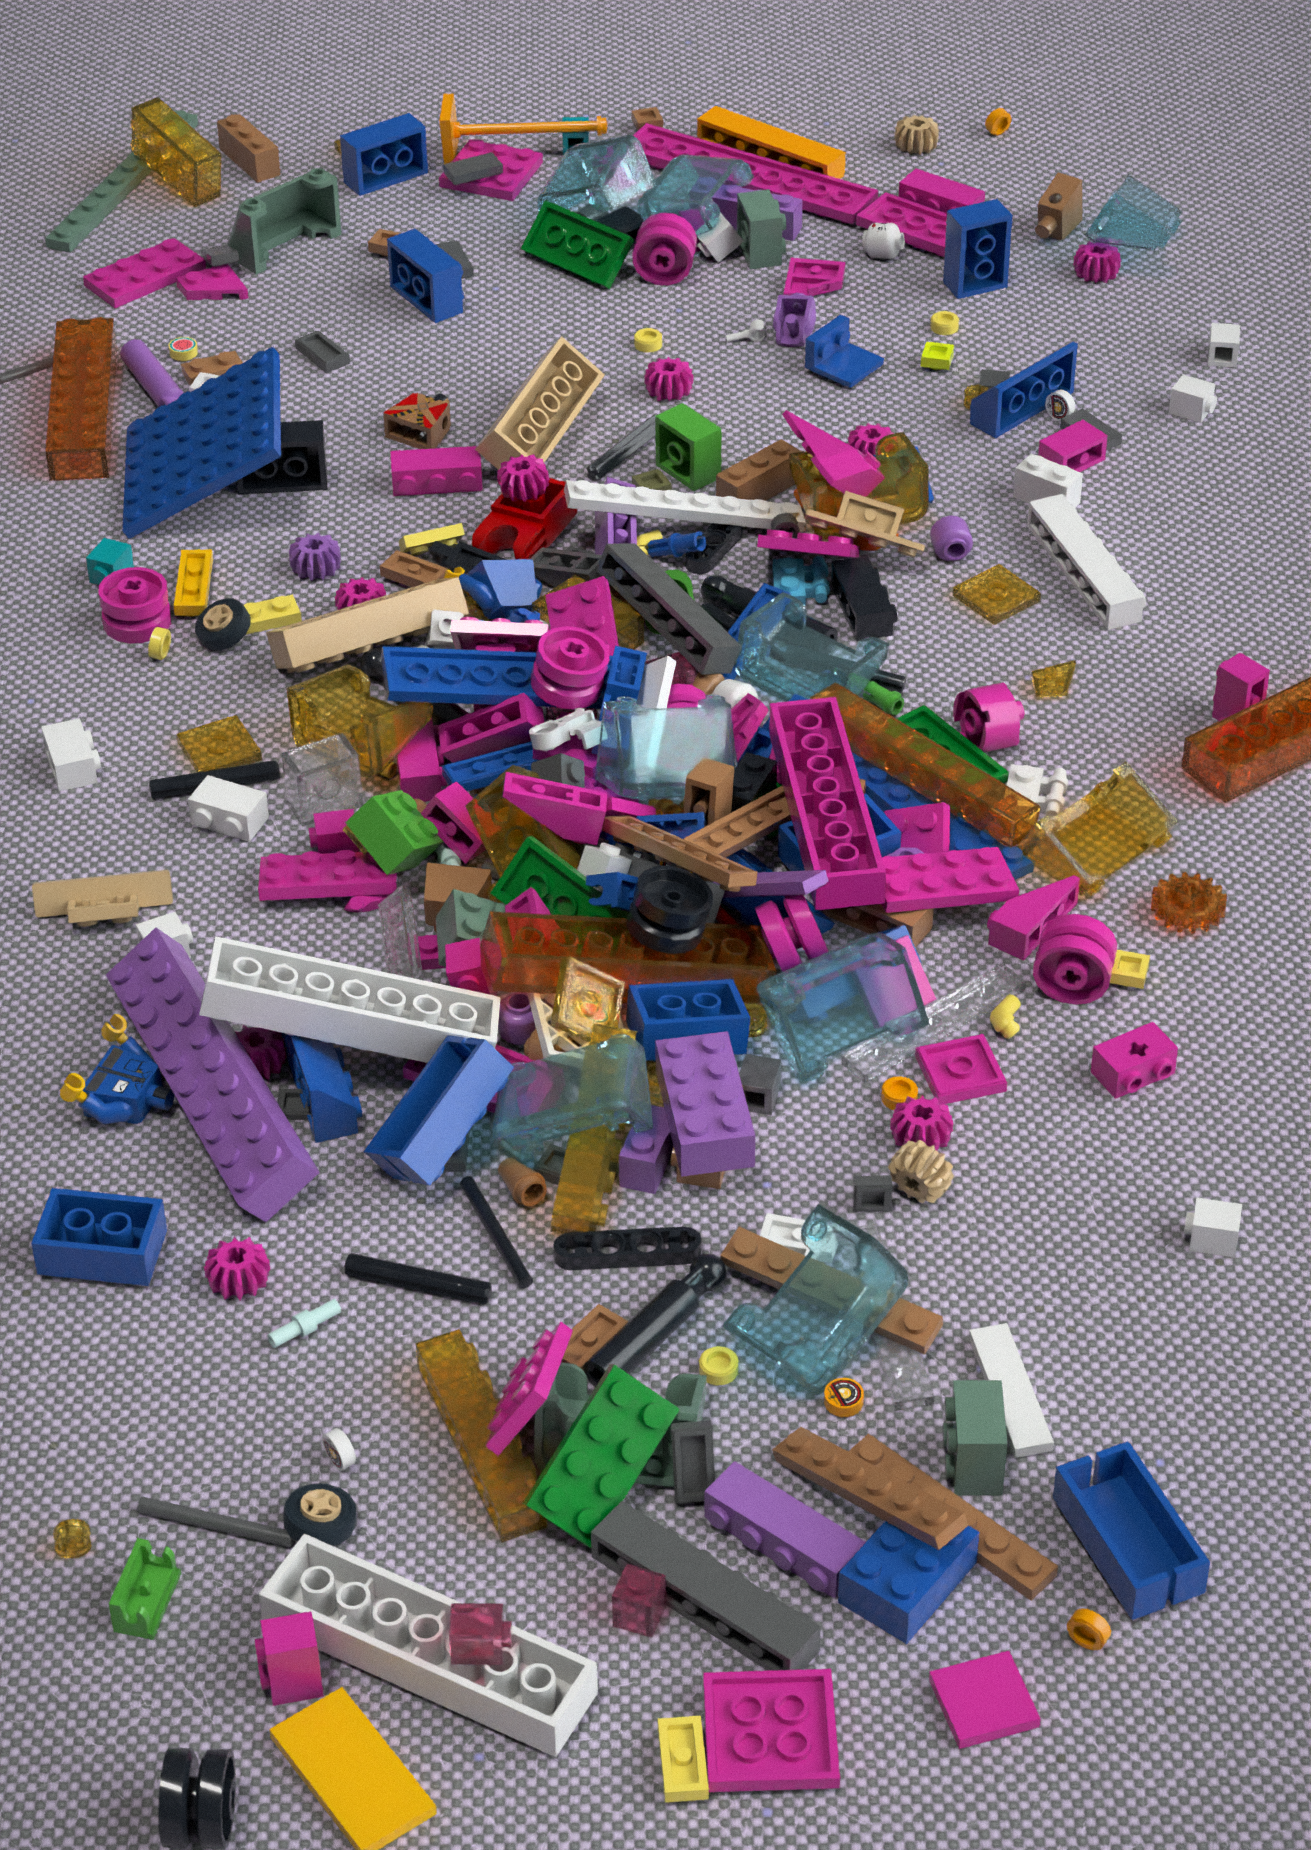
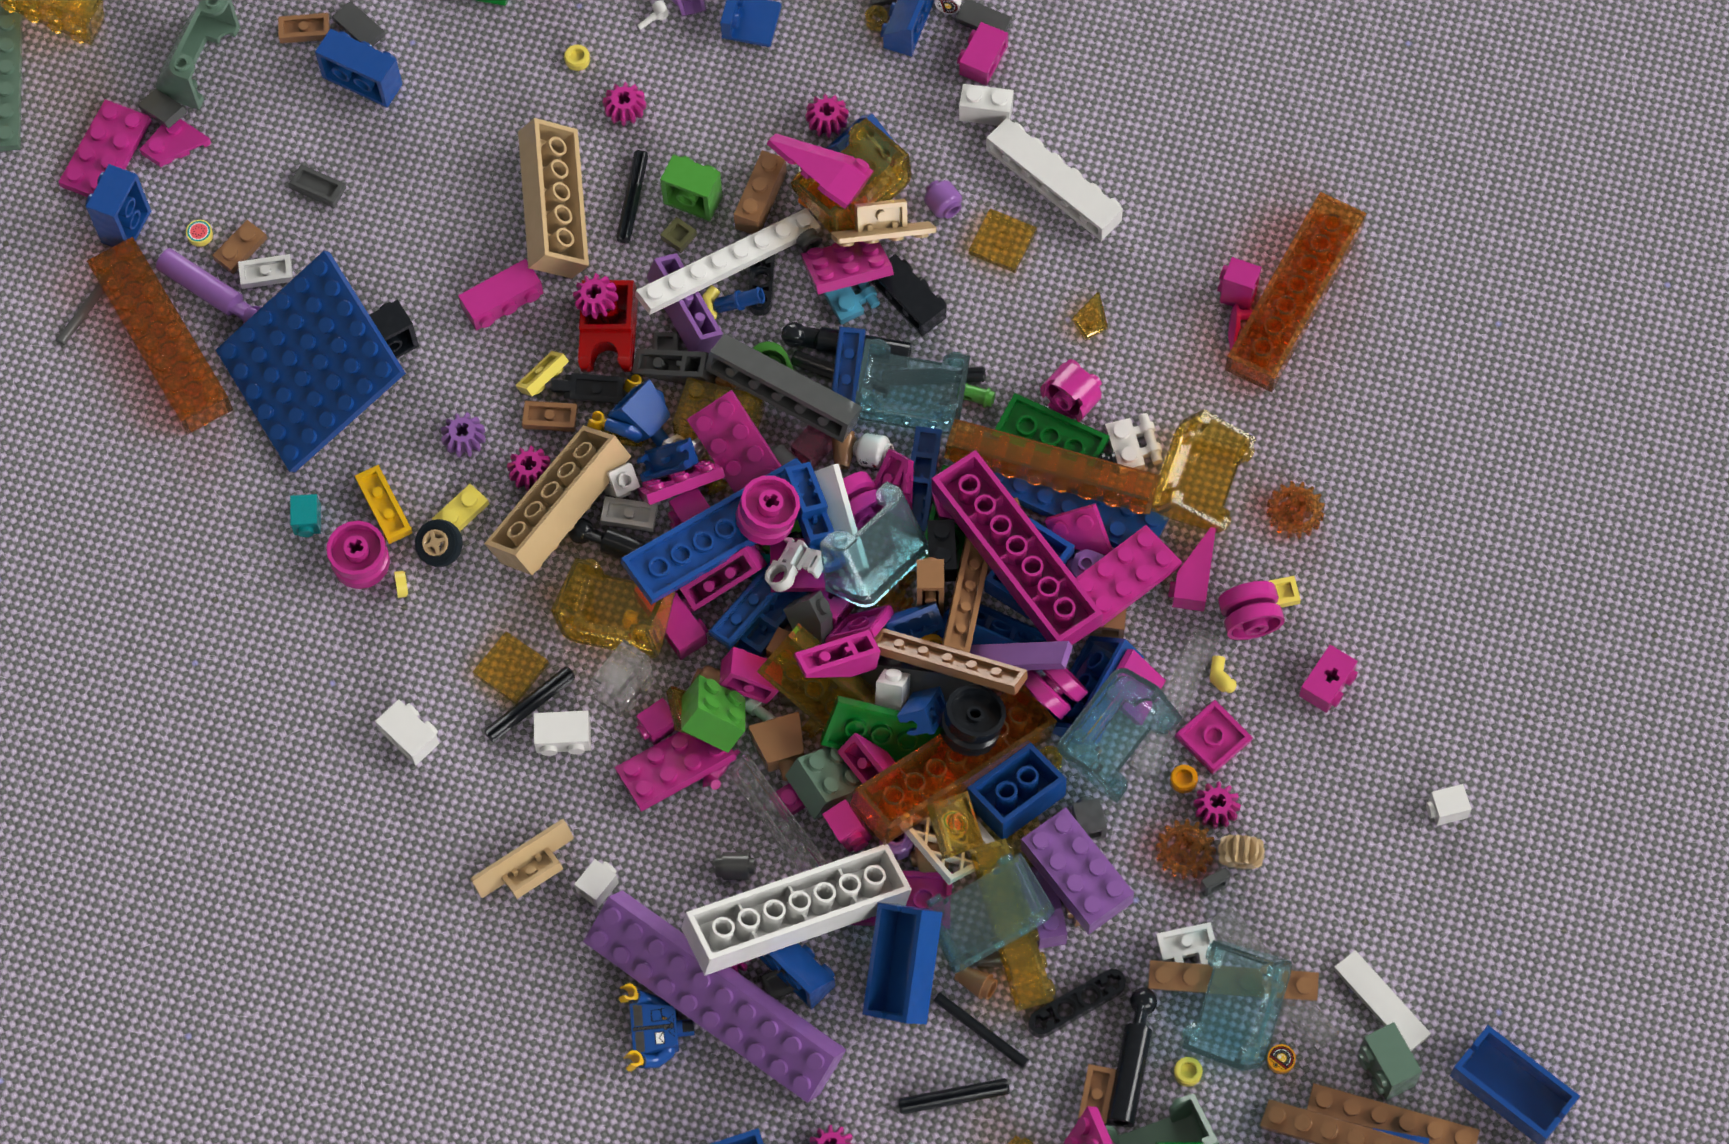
camera: 25 degrees left, 25 degrees up
(117, 287) = (118, 206): none -> blue brick
(418, 420) = (452, 240): medium nougat torso -> none
(855, 1149) = (1175, 853): none -> clear orange gear

